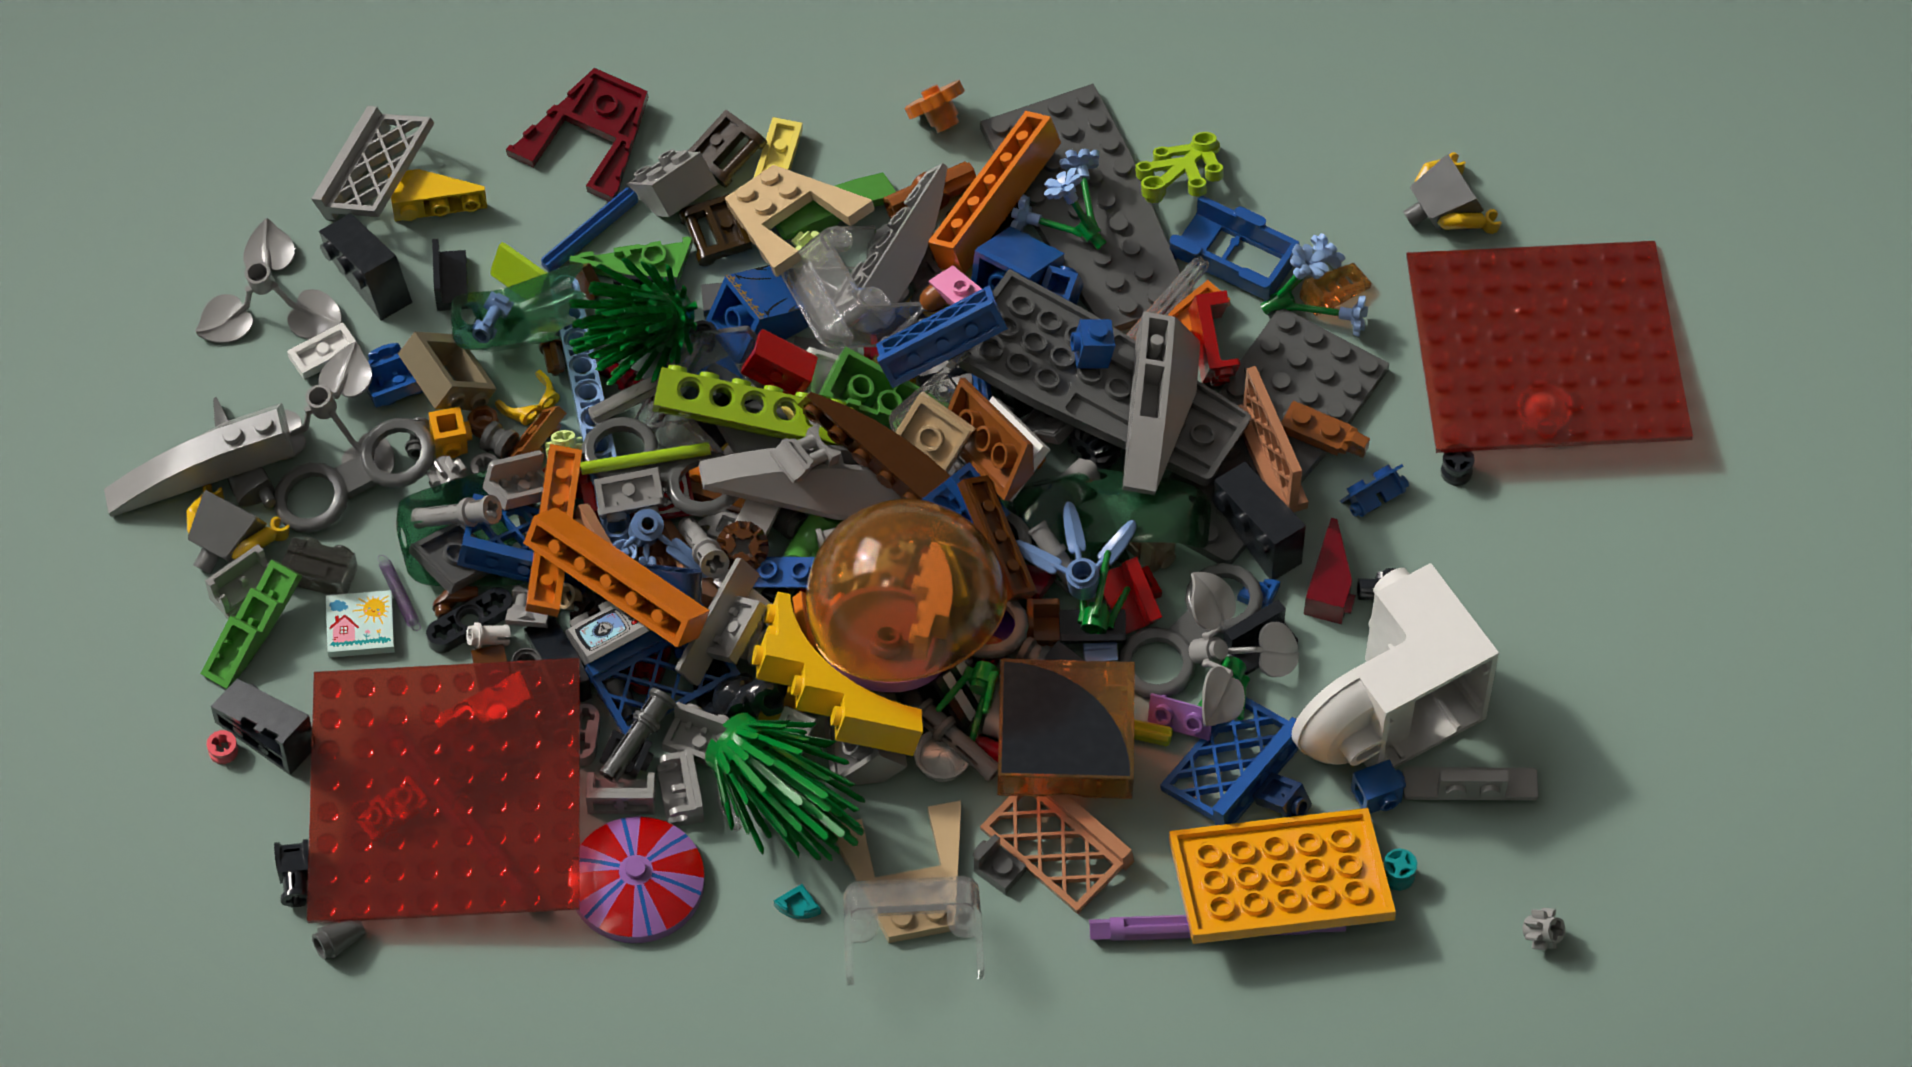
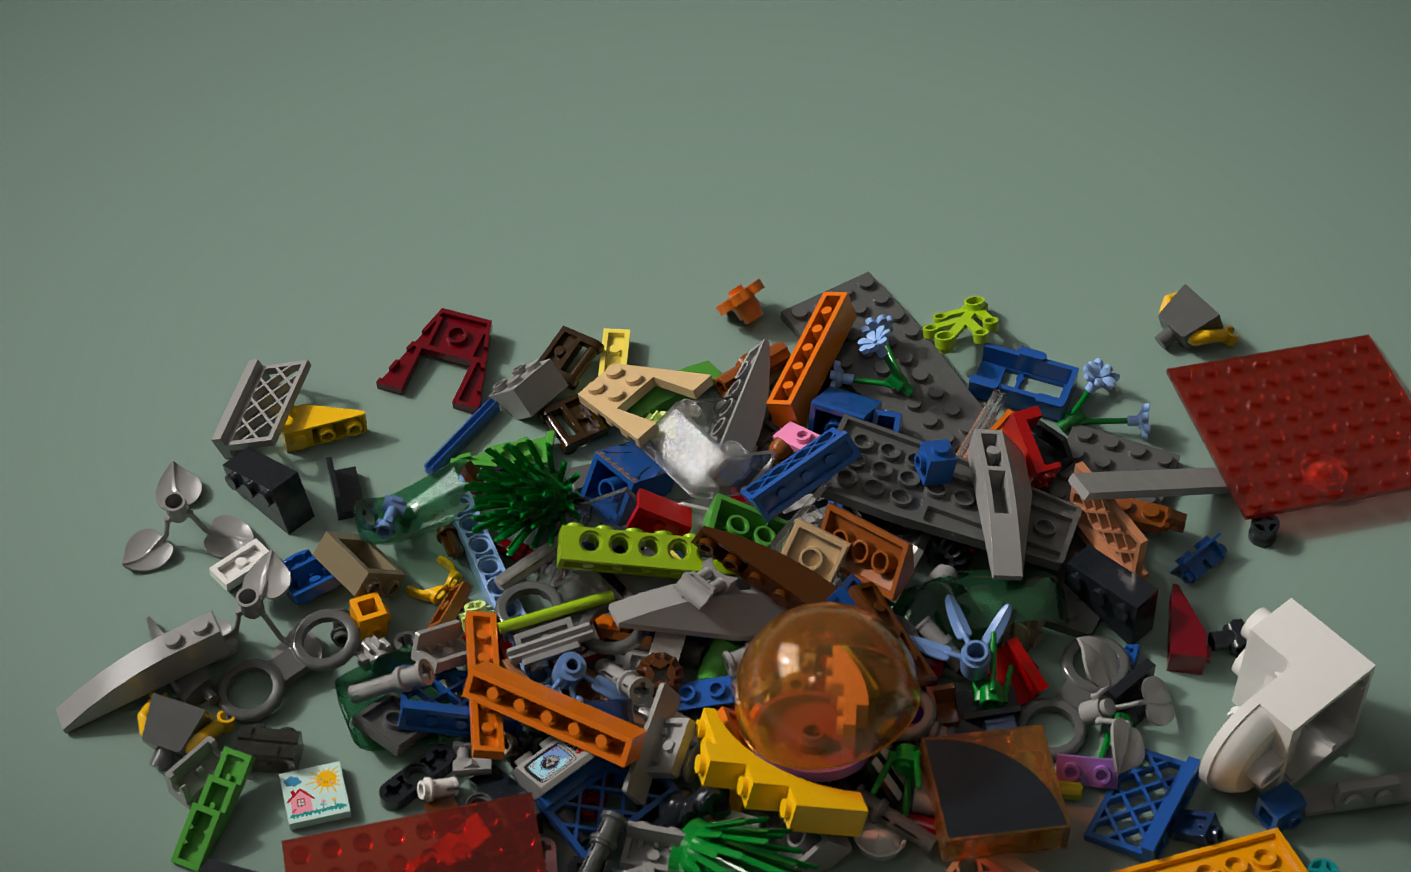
camera: 10 degrees left, 10 degrees down
(402, 589) = (349, 760): medium lavender piece -> none
(445, 602) = (393, 763): reddish brown arm -> none
(480, 419) = (399, 605): dark orange tile -> none
(498, 439) = (414, 617): dark grey wheel -> none
(512, 267) = (400, 473): lime slope -> none
(661, 488) = (577, 633): none -> light grey axle
(1237, 336) = (1052, 445): none -> black panel
(1315, 294) = (1113, 404): clear orange slope -> none
(1329, 399) = (1148, 483): none -> light grey tile

